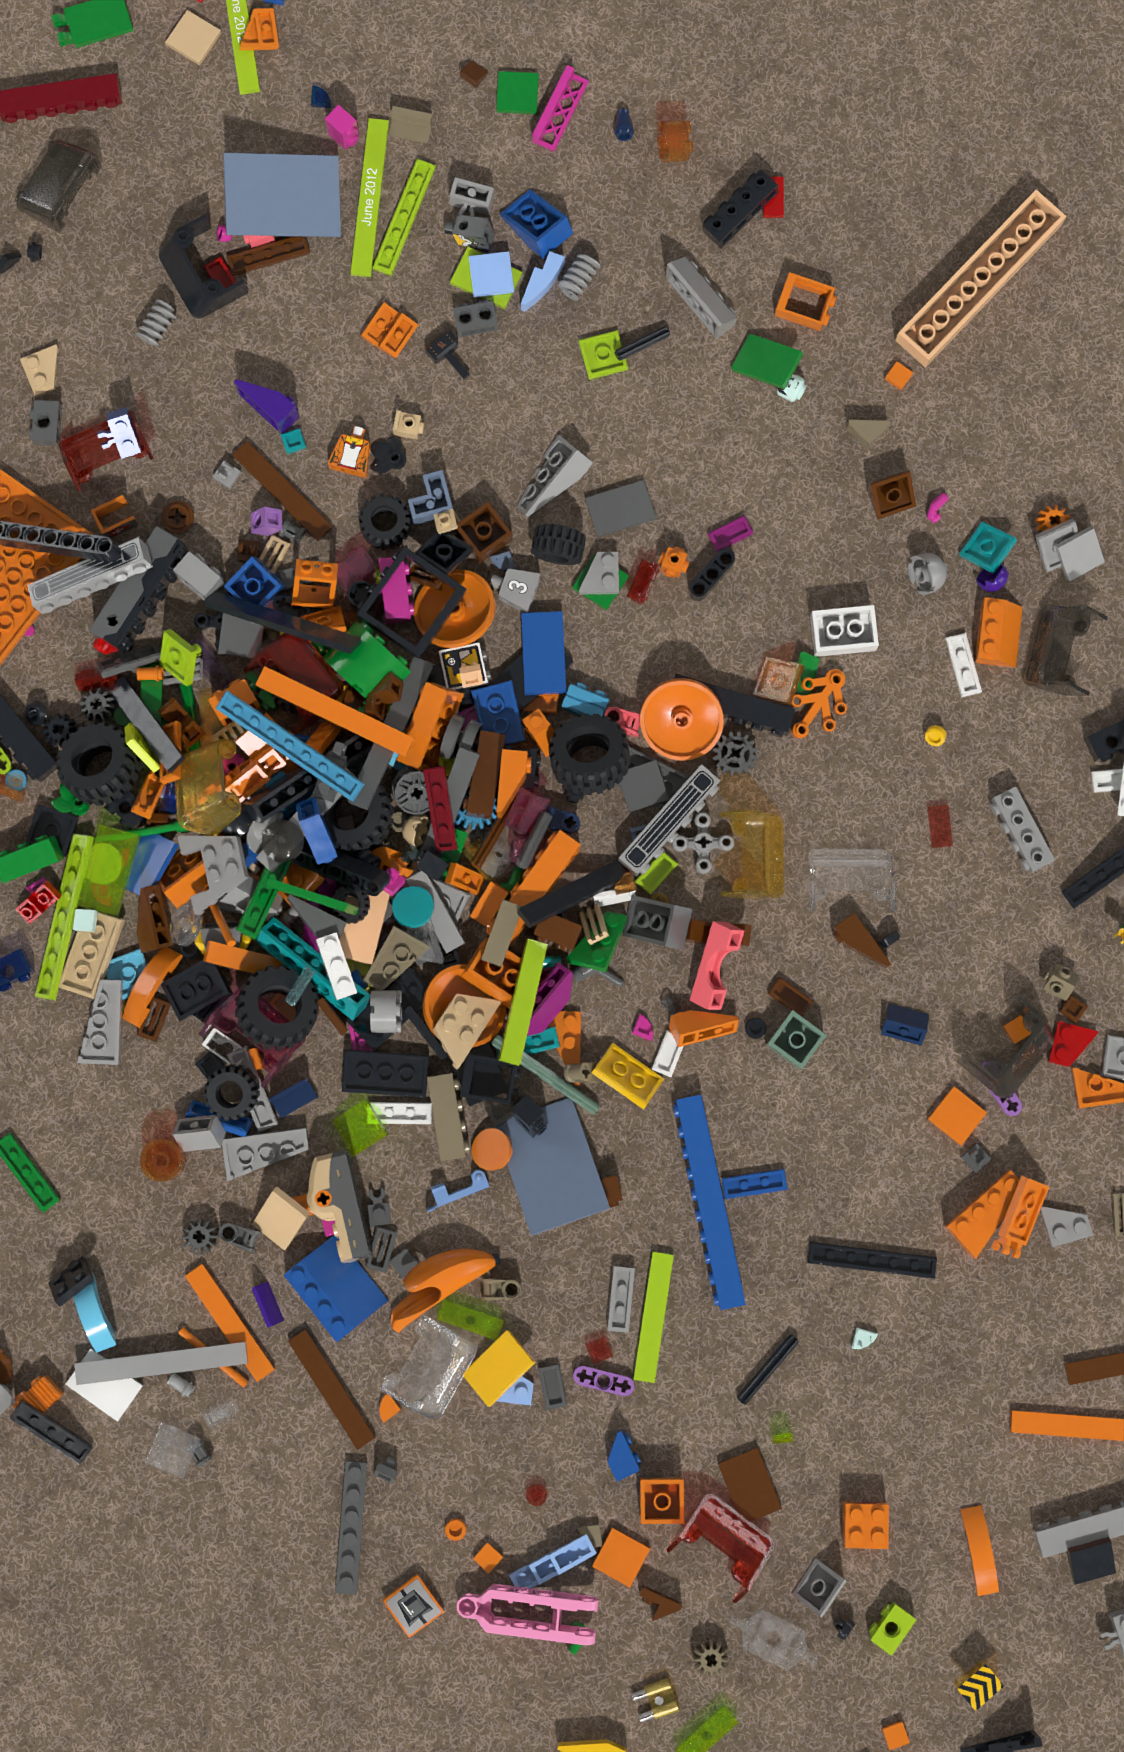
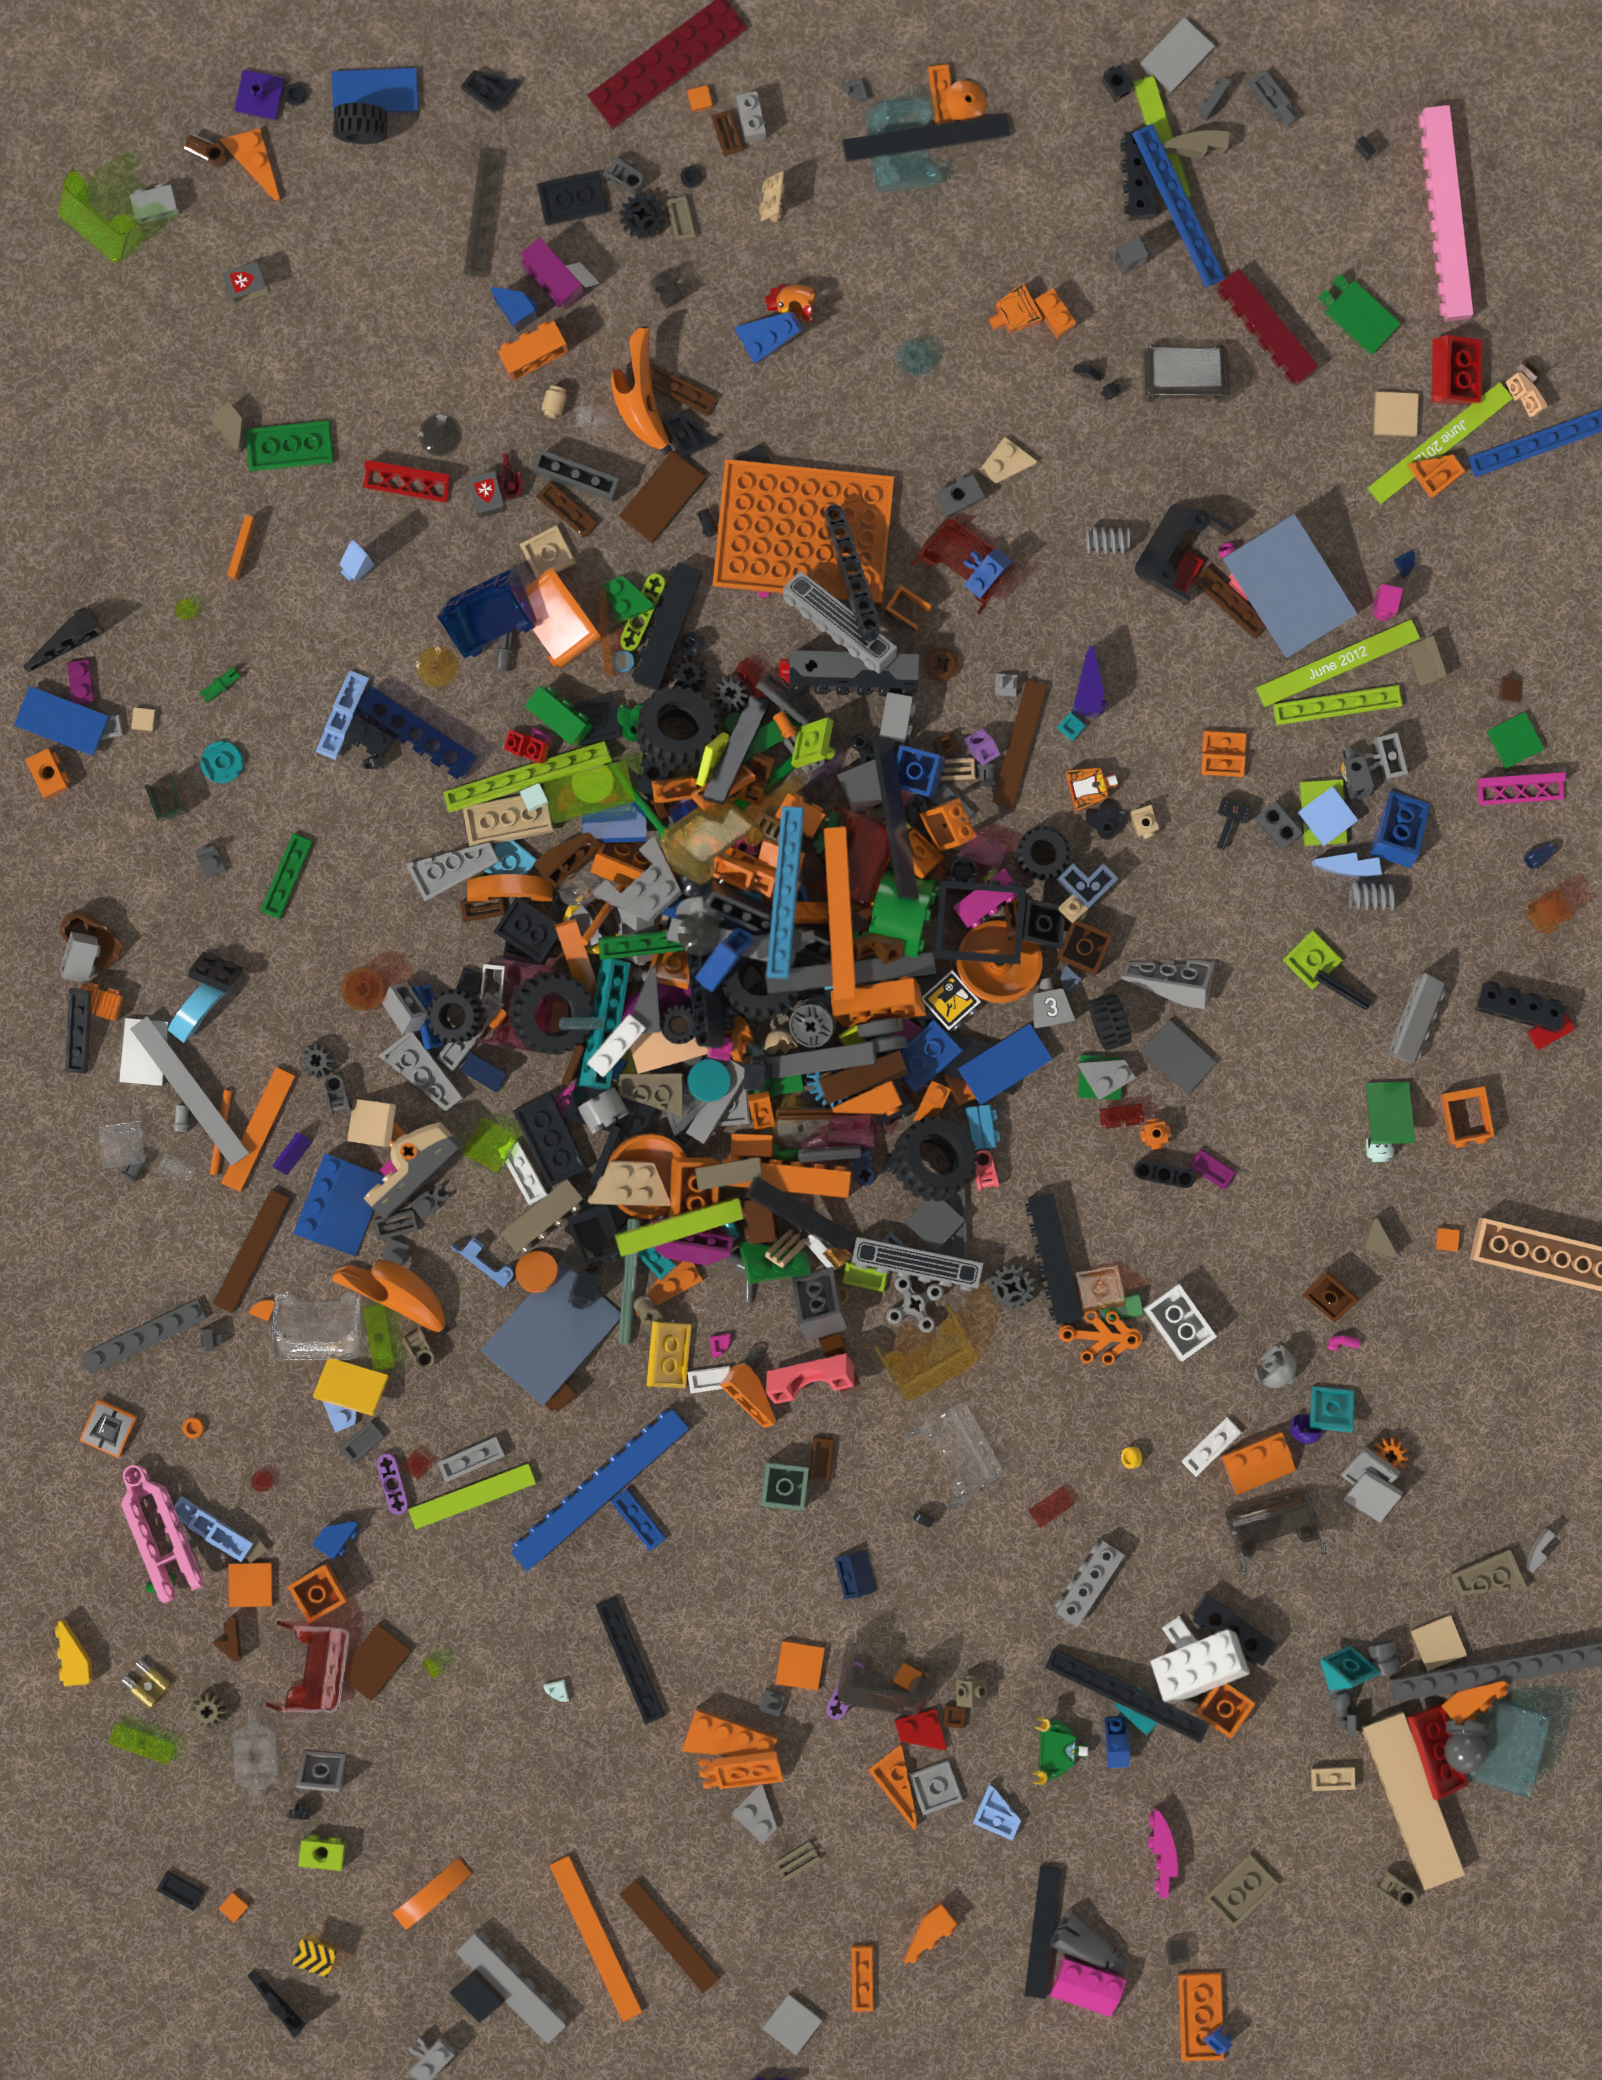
camera: 60 degrees right, 5 degrees up
(311, 896) = (664, 989): green tile -> none
(440, 808) = (809, 1055): dark red tile -> none
(471, 675) = (945, 1012): light nougat tile -> none
(488, 1557) = (185, 1469): orange tile -> none
(681, 719) = (1014, 1222): orange dish -> none
(755, 1028) = (776, 1443): black tile -> none
(767, 1369) = (483, 1622): black axle -> none
(857, 938) = (907, 1488): reddish brown slope -> none
(865, 1525) = (397, 1782): orange brick -> none

